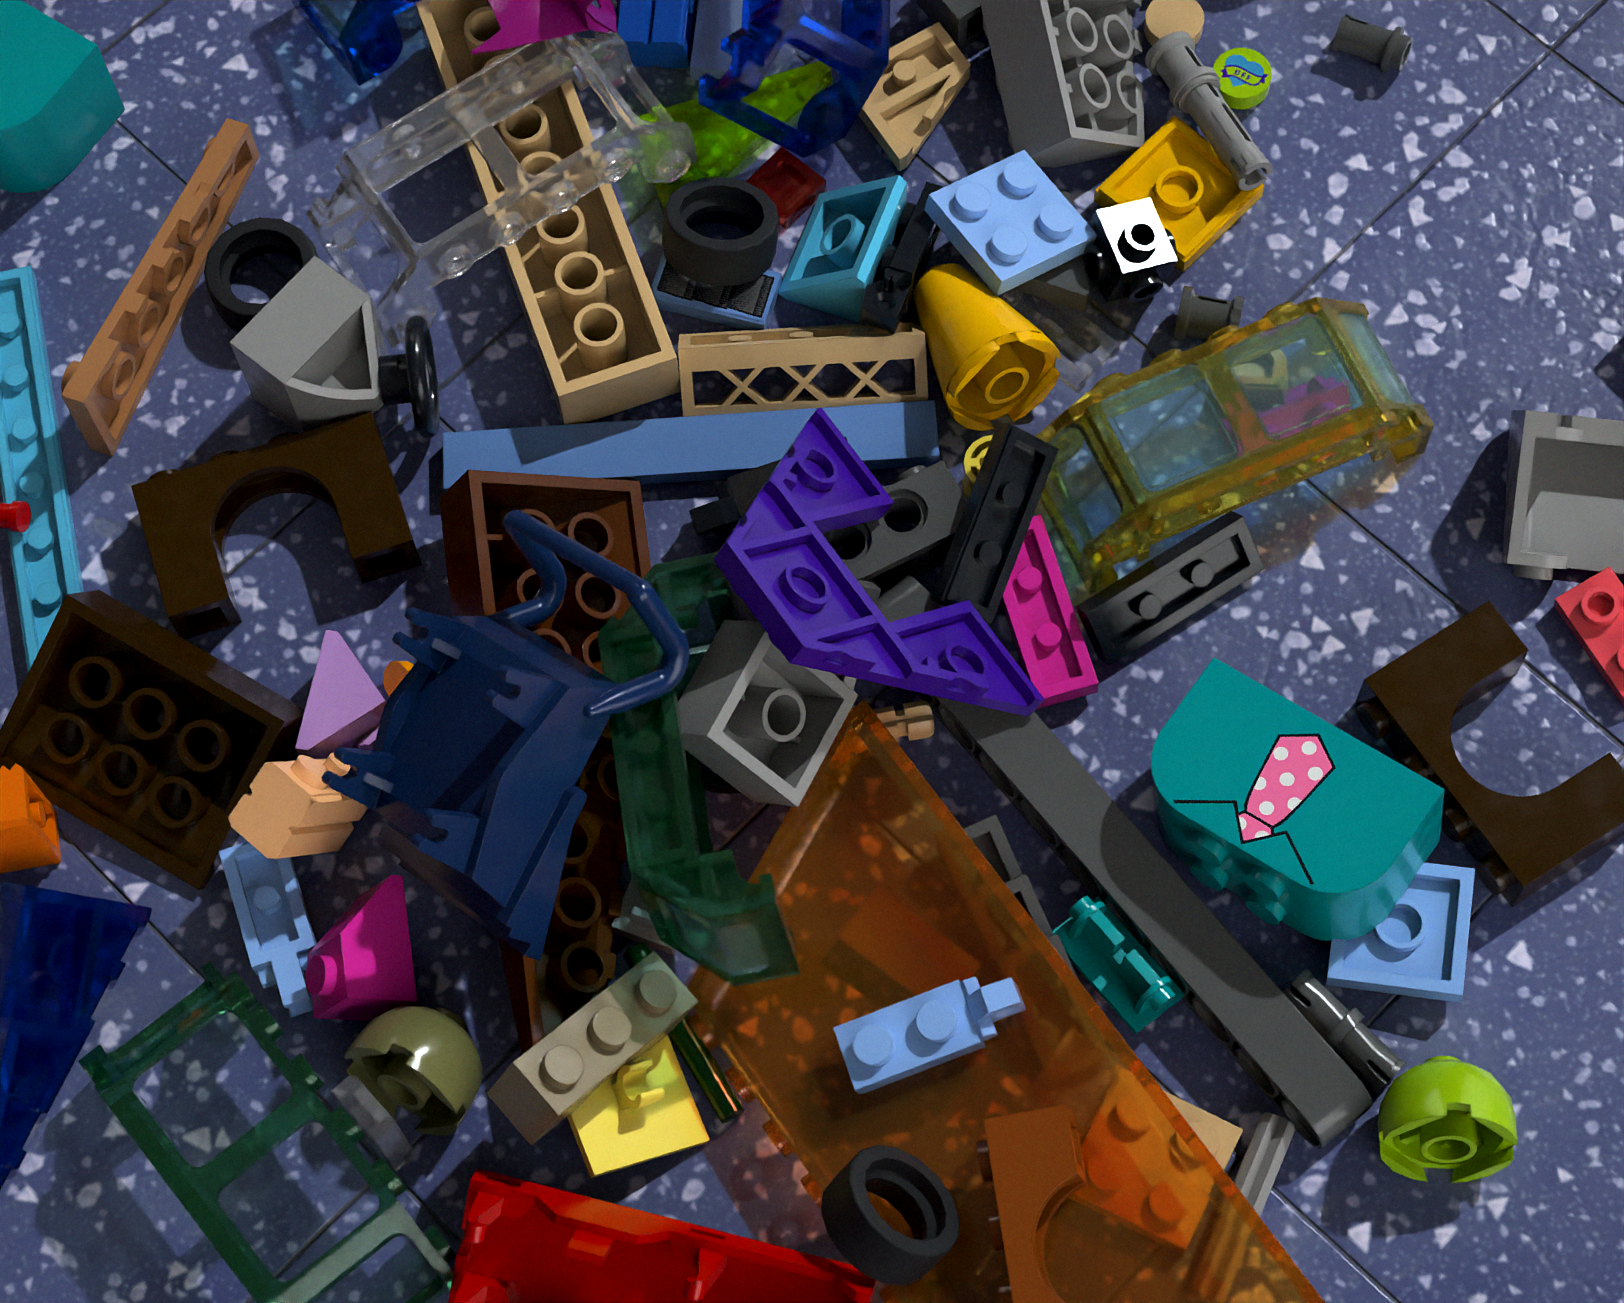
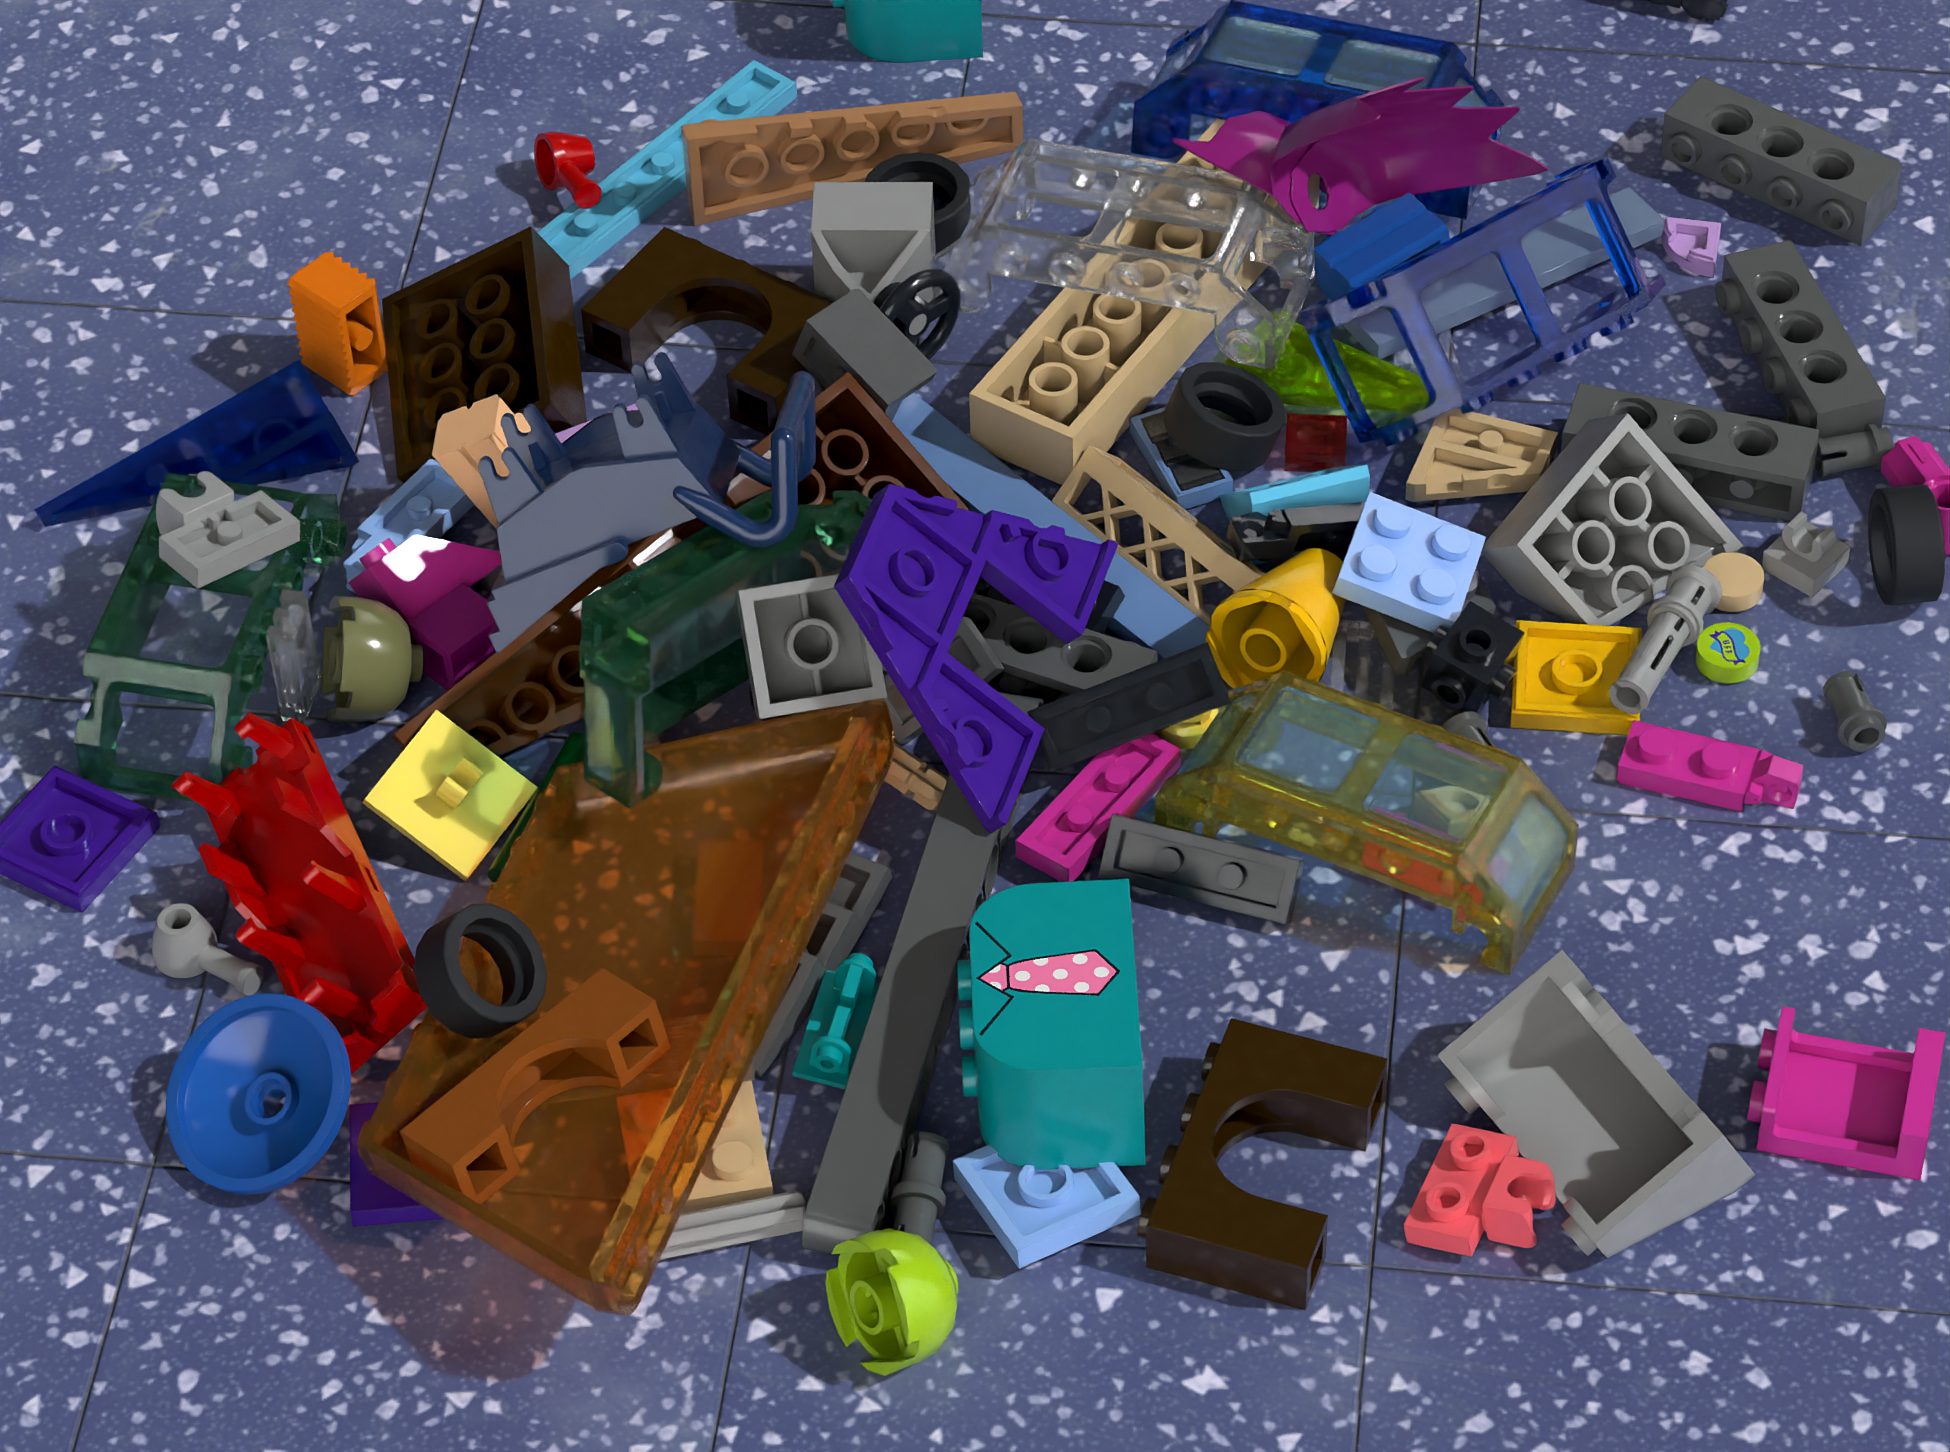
camera: 50 degrees right, 20 degrees down
(231, 1104) = (215, 534): none -> light grey plate
(439, 439) = (862, 341): none -> dark grey panel
(450, 965) = (454, 636): none -> magenta brick
(591, 1047) = (420, 704): dark tan arch -> none
(924, 1030) = (658, 921): light blue hinge -> none
(1340, 177) = (1706, 769): none -> dark pink hinge

